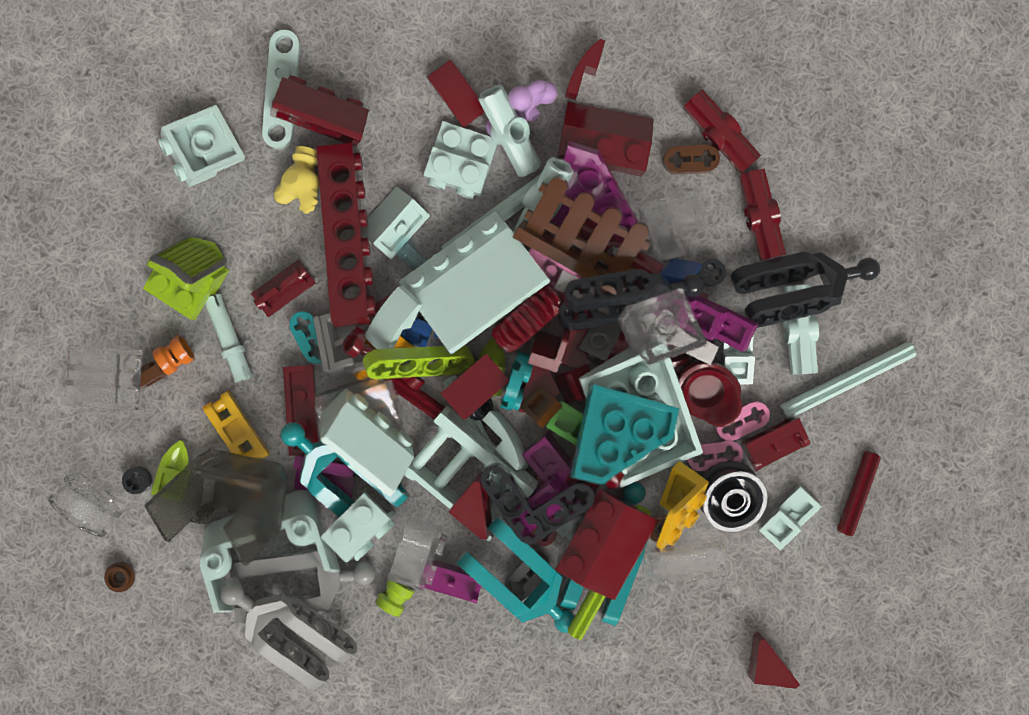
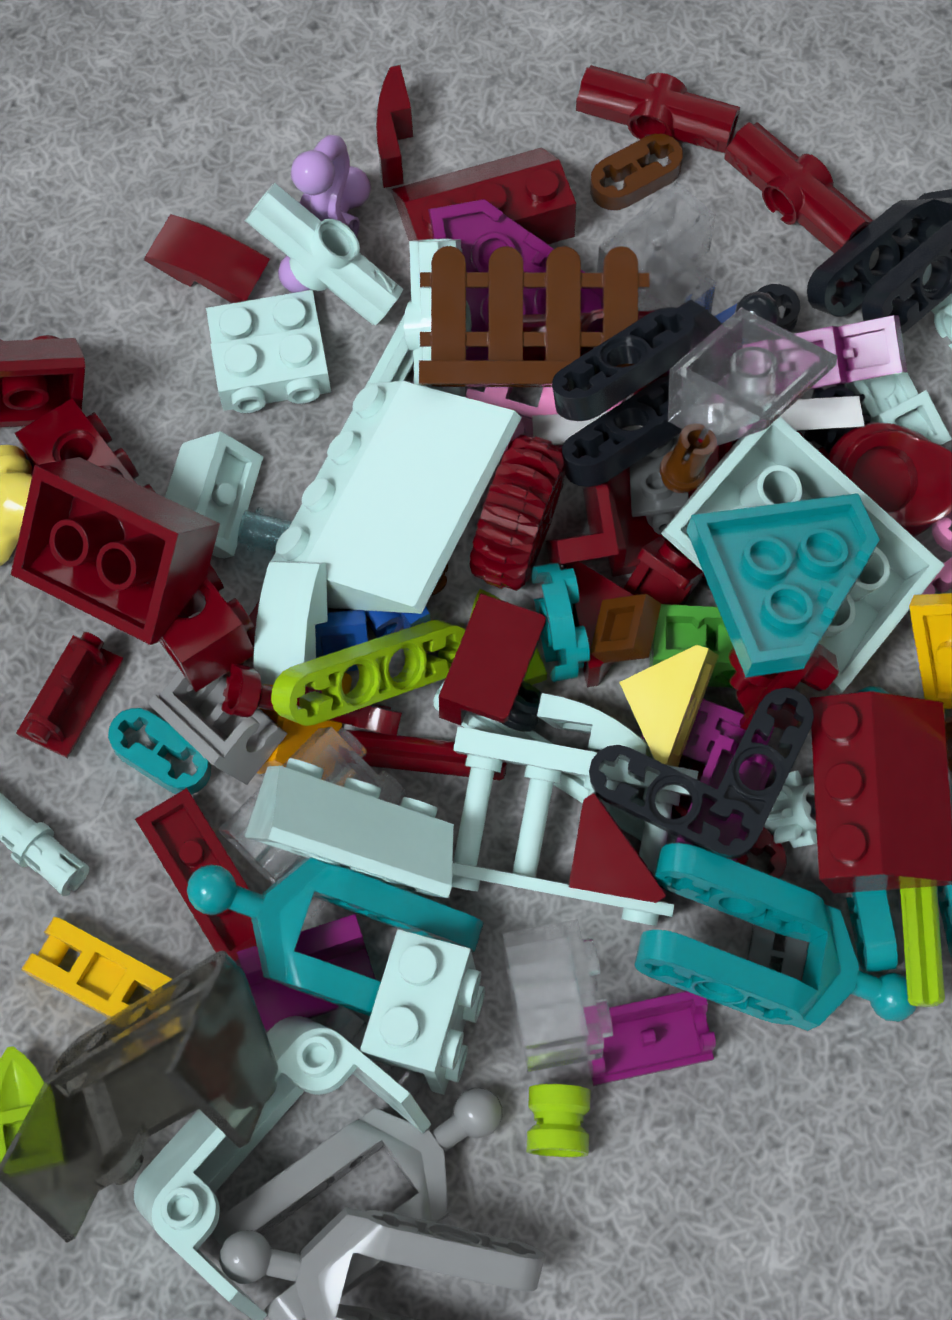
camera: 30 degrees left, 20 degrees down
(327, 245) = (112, 547): none -> dark red slope
(537, 451) = (668, 700): none -> light yellow slope
(616, 340) = (684, 466): none -> reddish brown pin

